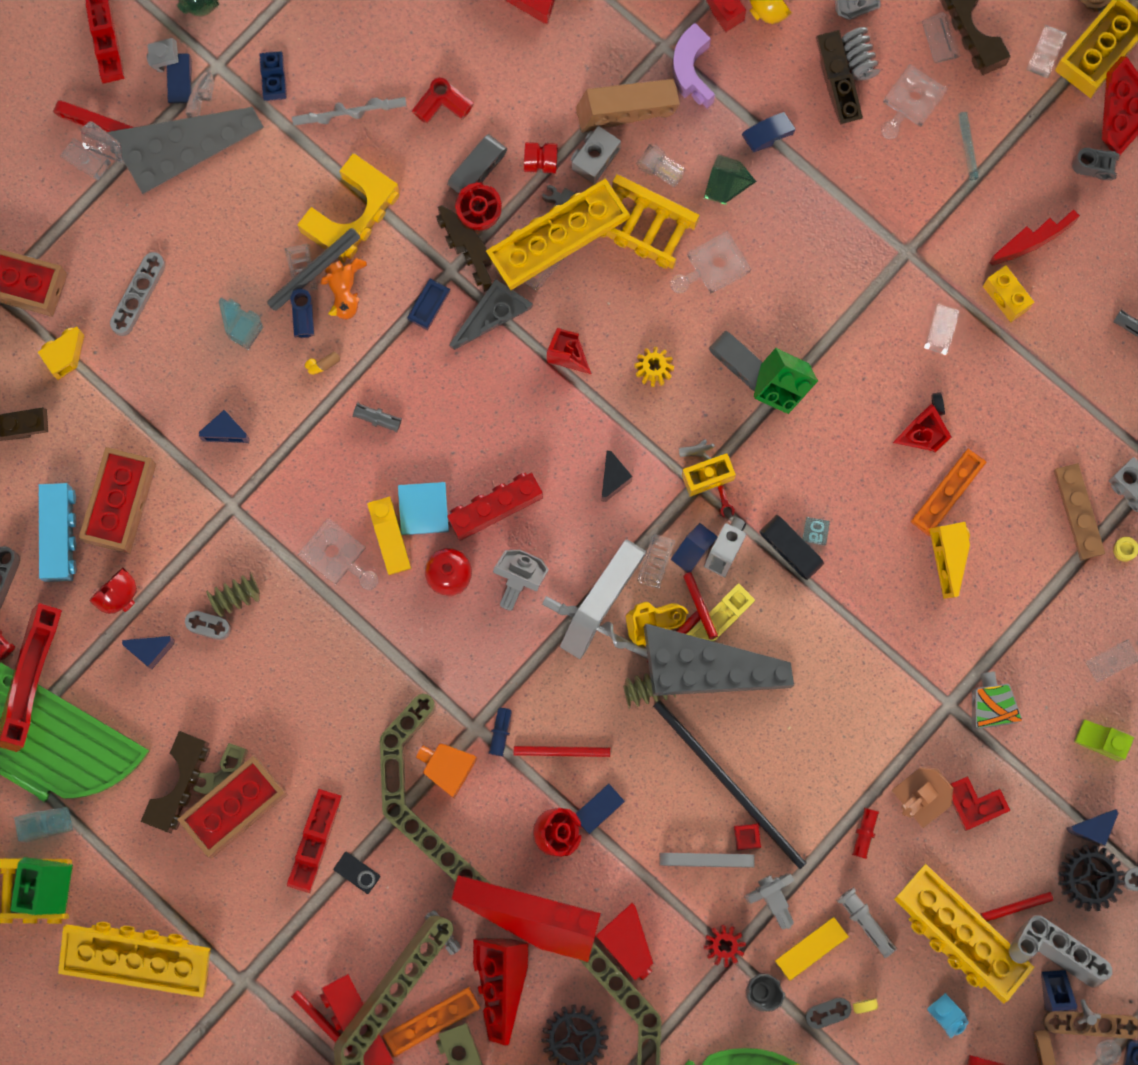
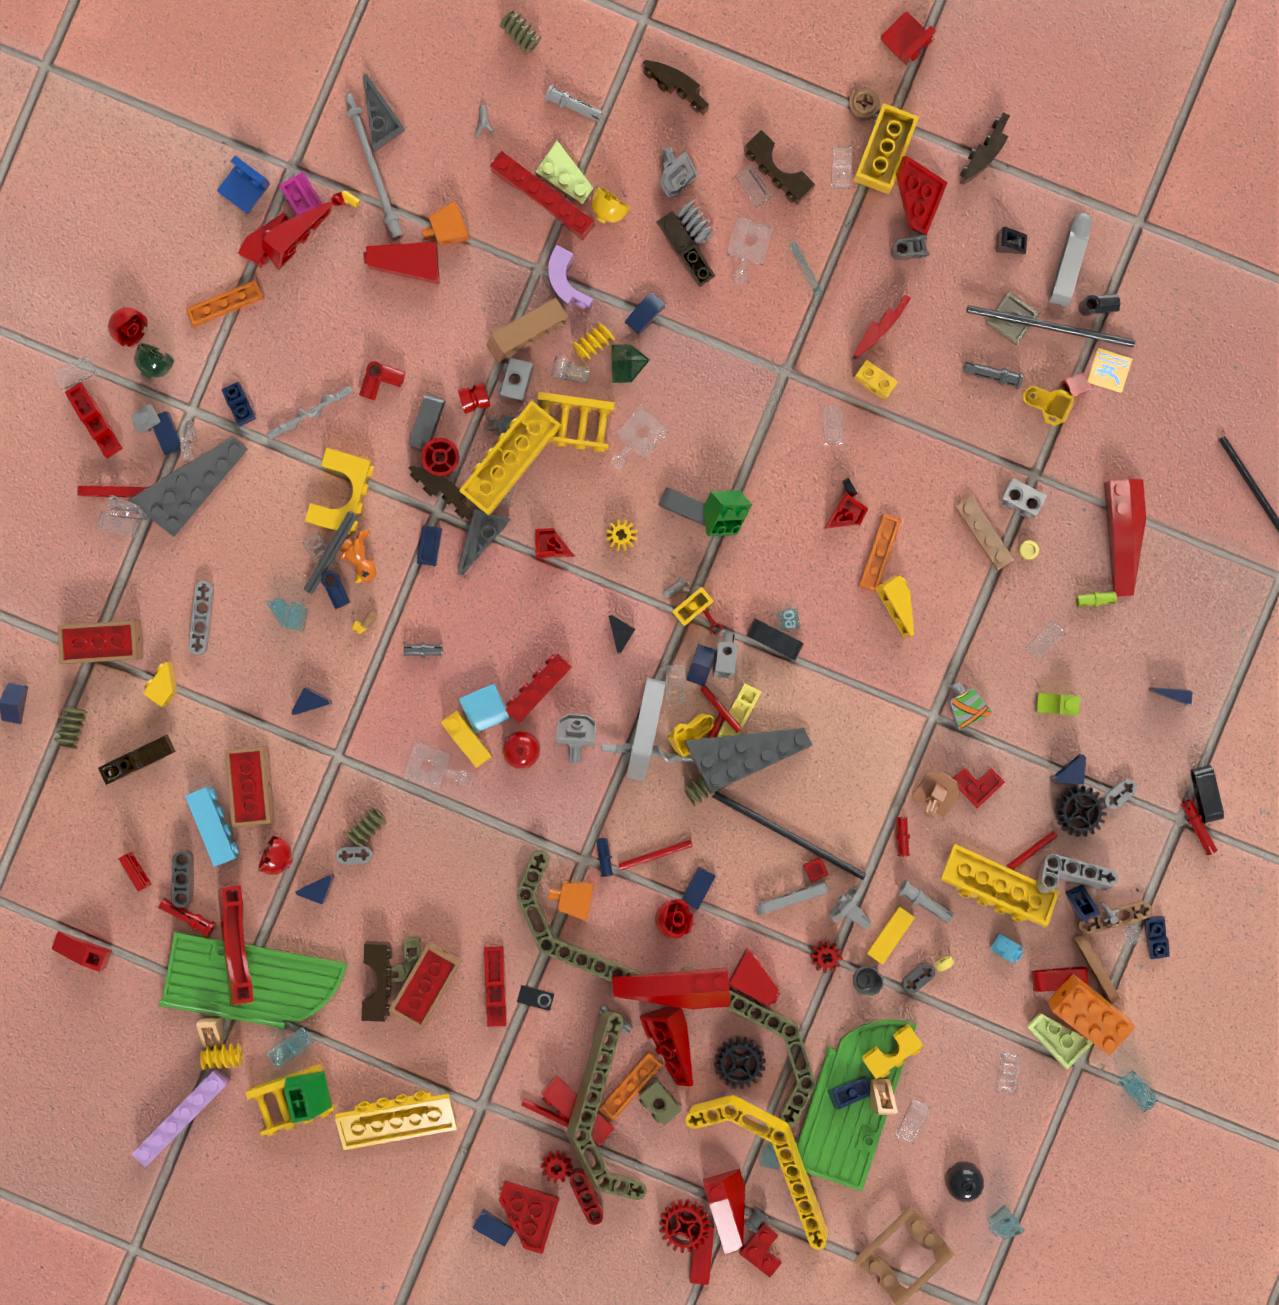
camera: 25 degrees left, 10 degrees up
(697, 142) = (592, 342): none -> yellow piece

